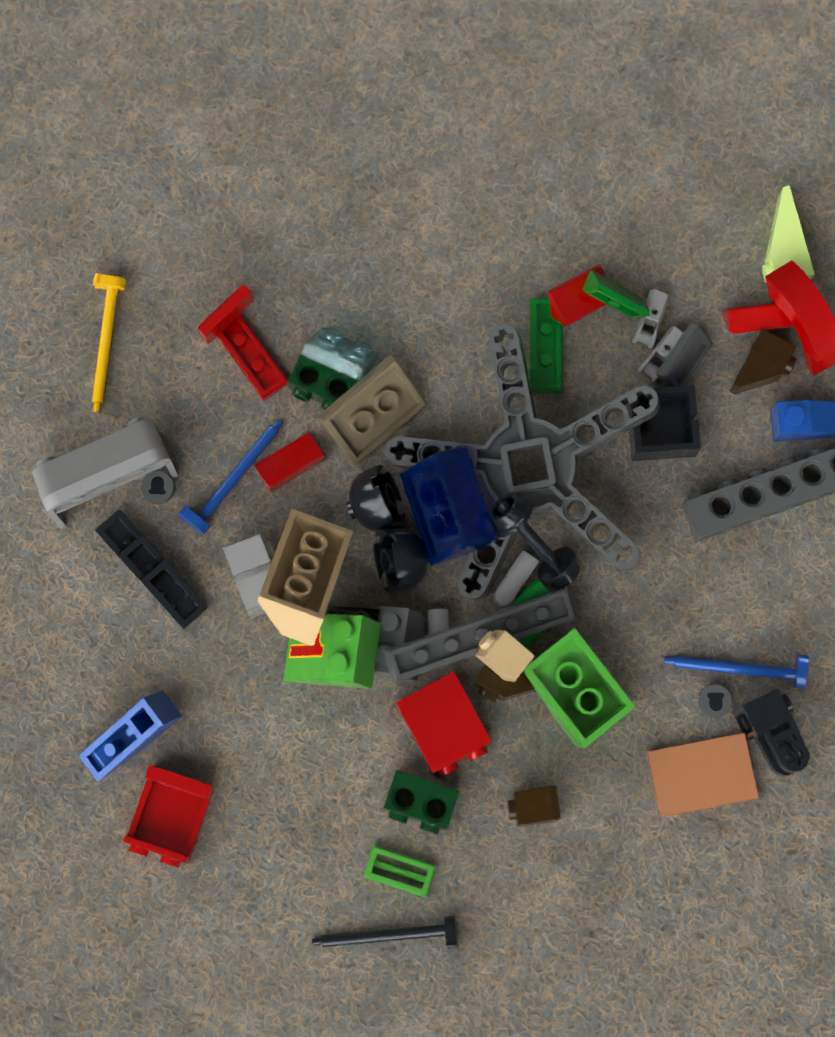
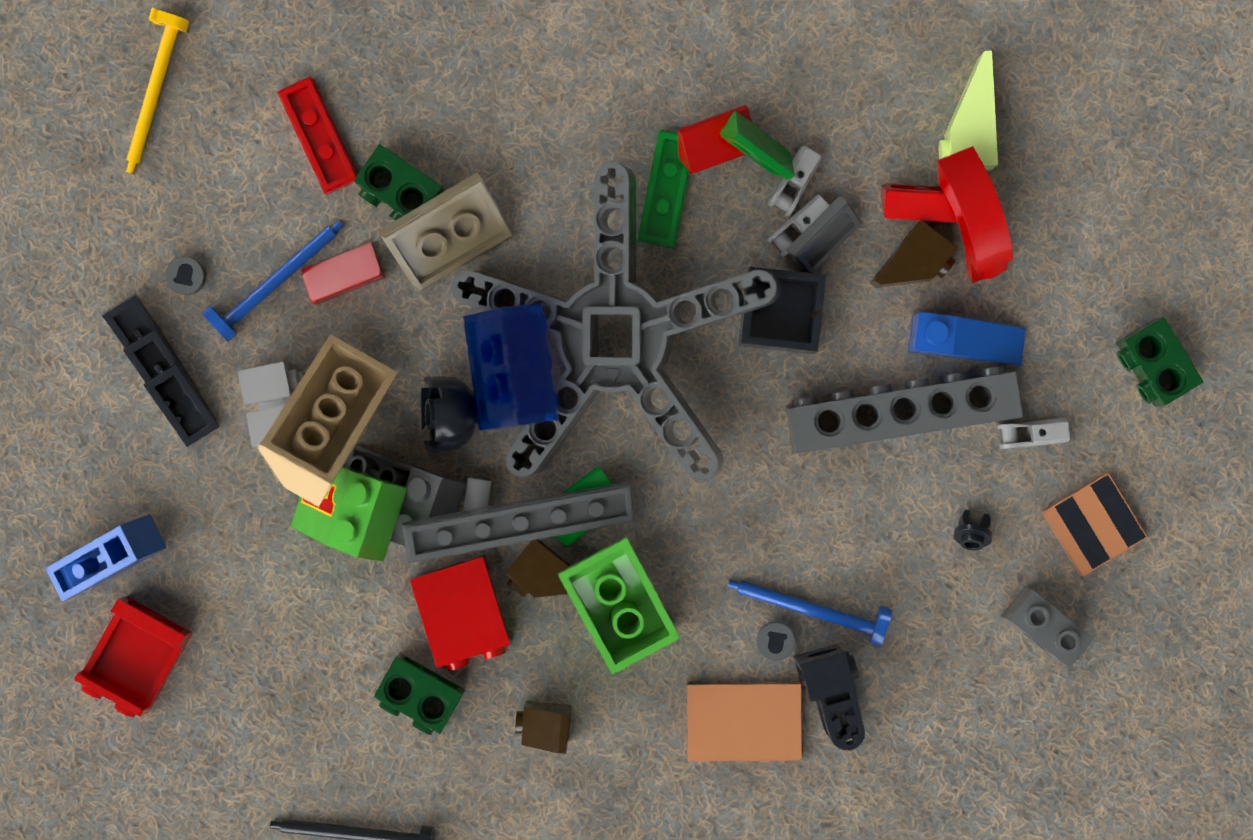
camera: 10 degrees right, 10 degrees up
(100, 467) = (118, 247): light grey windscreen -> none
(225, 314) = (295, 86): red tile -> none
(340, 353) = (421, 158): clear light blue plate -> none
(374, 500) = (429, 339): black cylinder -> none
(403, 858) = (388, 751): bright green tile -> none
(503, 654) = (539, 553): tan brick -> none
(514, 579) = (575, 459): light grey bar -> none
(558, 566) = (579, 396): black piece -> none

